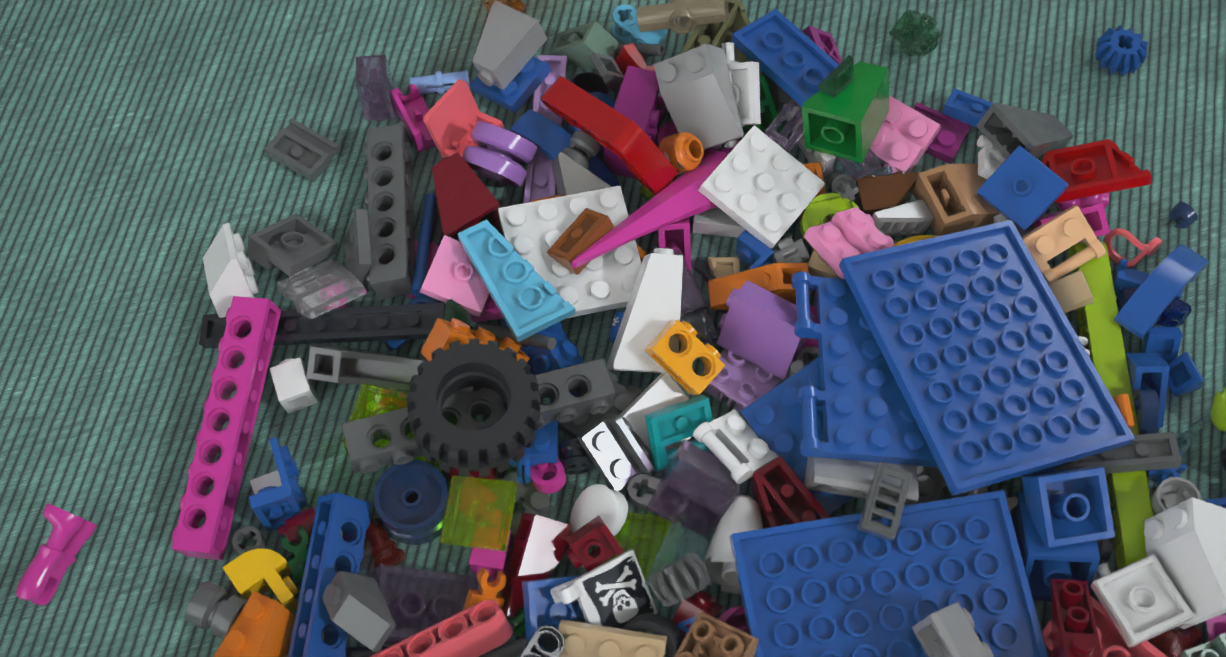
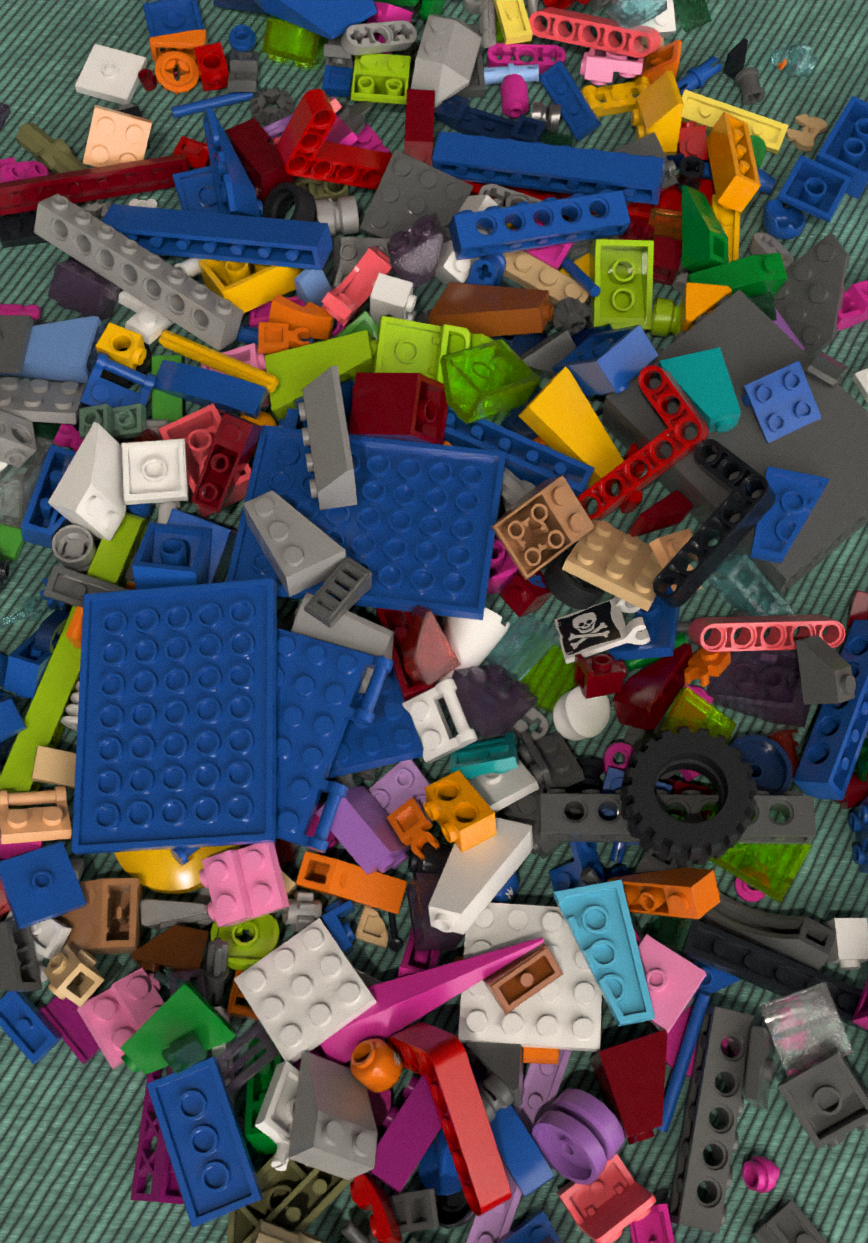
camera: 170 degrees left, 5 degrees up
(339, 189) = (760, 1174): none -> dark pink plate
(679, 579) = (535, 612): dark grey gear -> none
(724, 341) = (412, 825): none -> orange plate
(772, 488) = (427, 648): none -> clear red slope
(916, 33) = (38, 1151): clear green brick -> none
(956, 140) = (73, 975): none -> tan brick
(961, 541) = (292, 543): none -> light grey wedge

